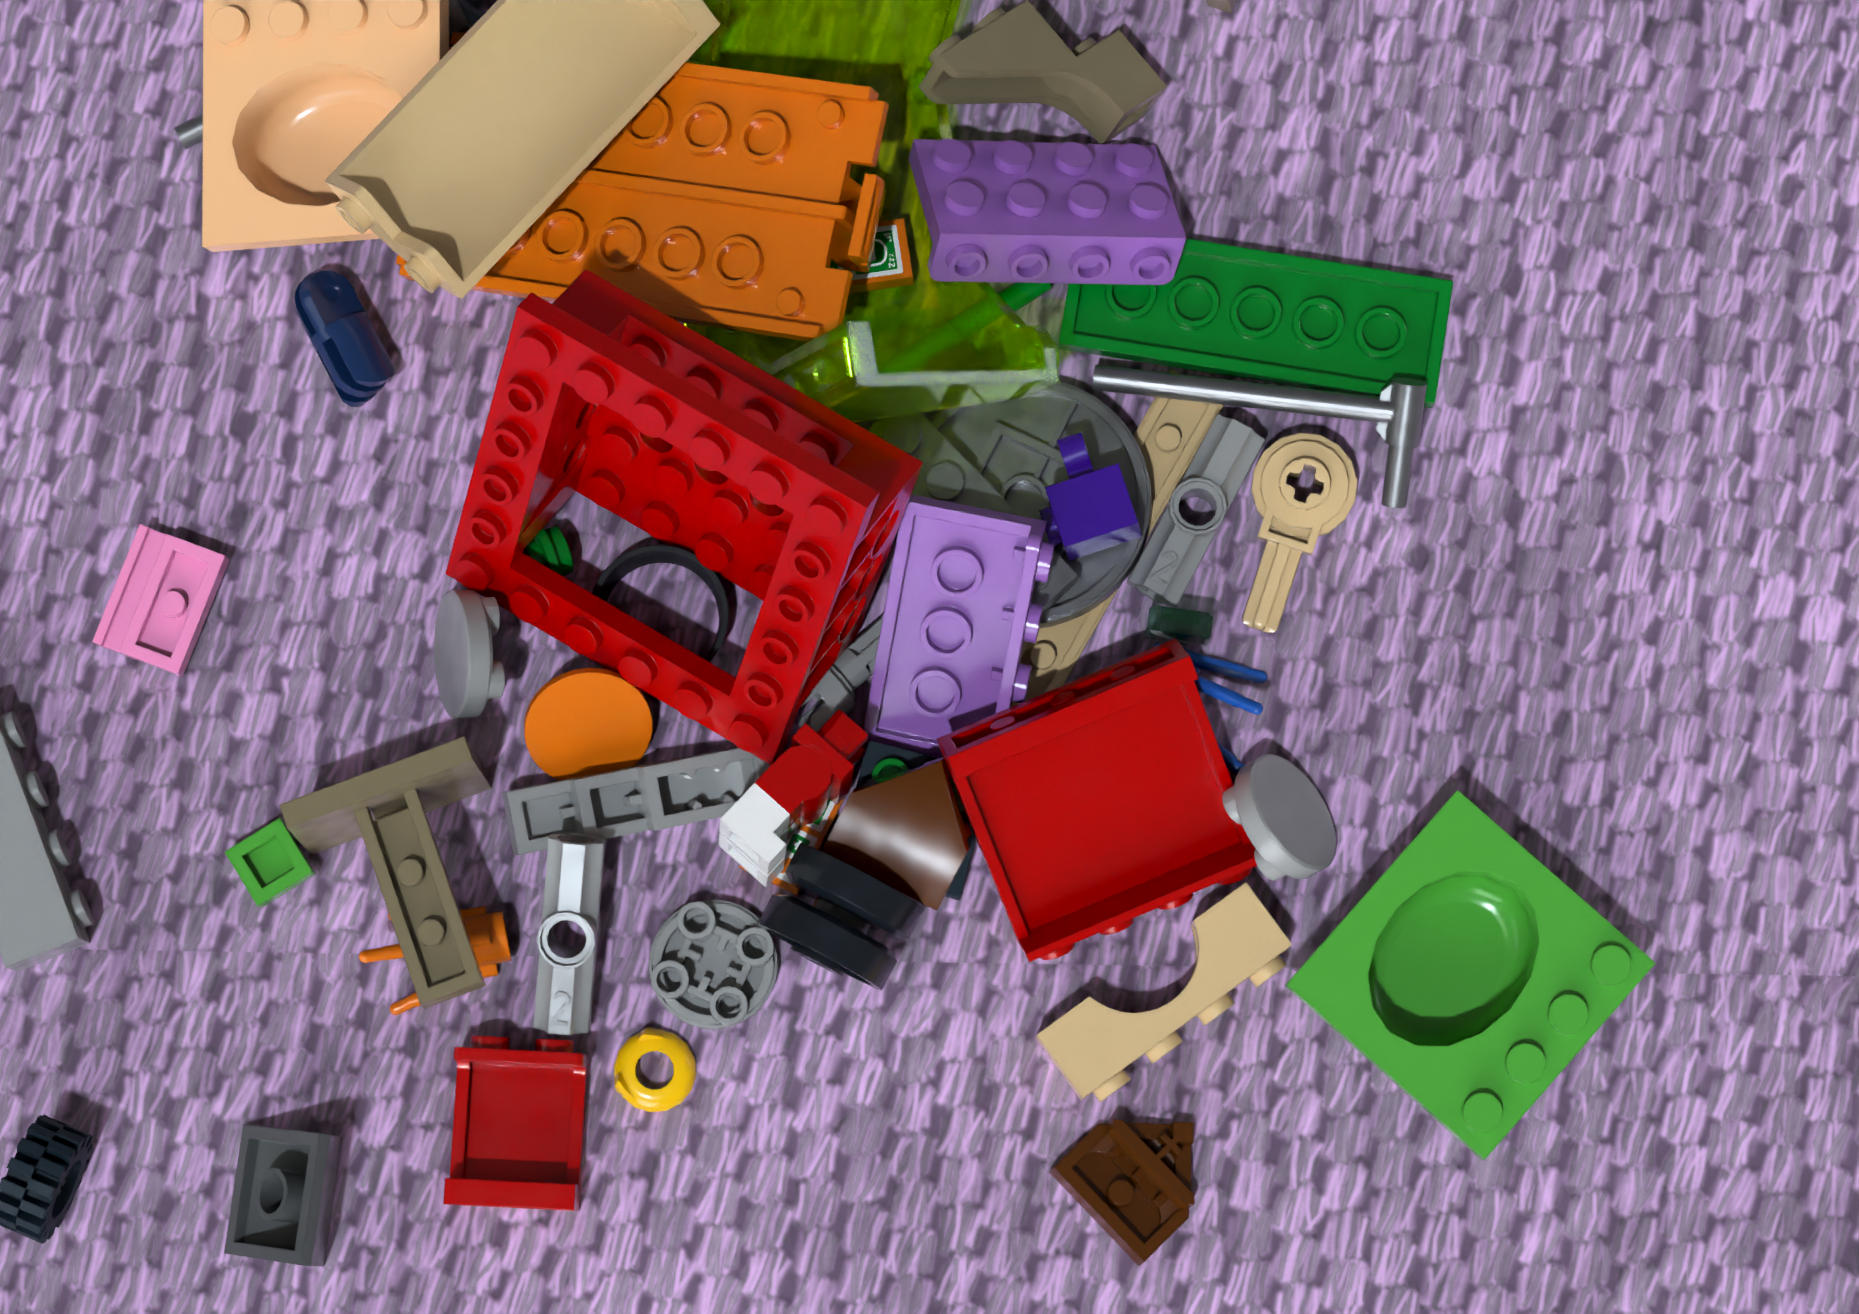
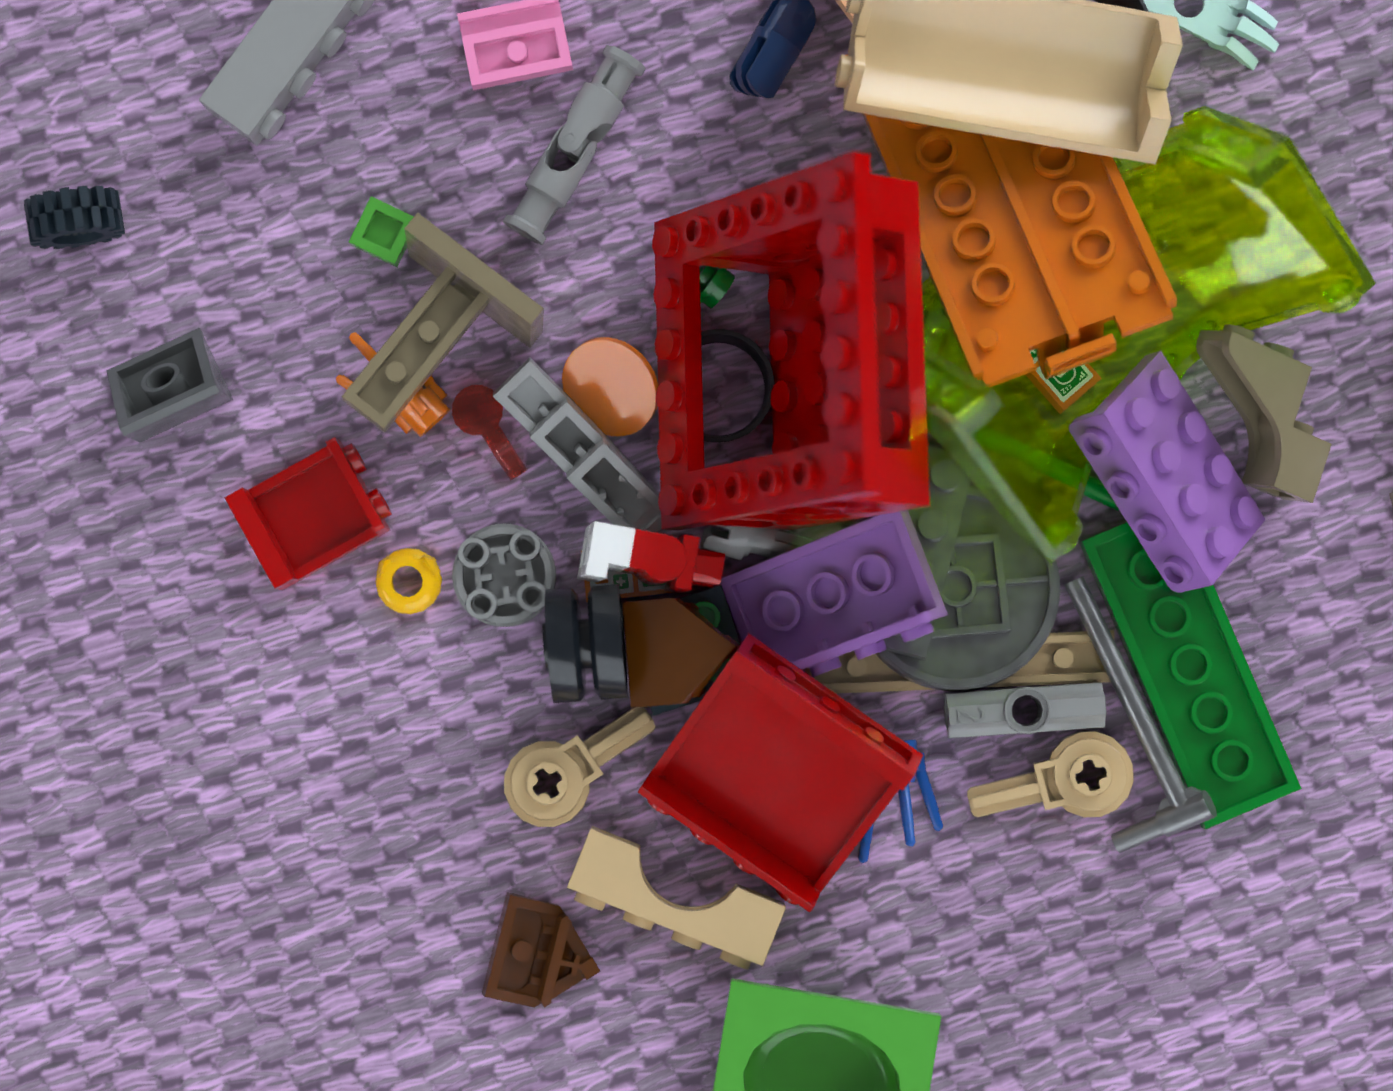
camera: 55 degrees right, 5 degrees up
(294, 574) = (587, 123): none -> light grey piece
(465, 653) = (606, 270): light grey tile -> none
(519, 883) = (479, 415): none -> clear red plate
(564, 971) = (486, 453): light grey piece -> none
(958, 1014) = (575, 763): none -> tan piece
(1090, 507) = (979, 637): dark purple brick -> none
(1178, 624) = (936, 748): clear green tile -> none
(1282, 818) = (846, 904): light grey tile -> none

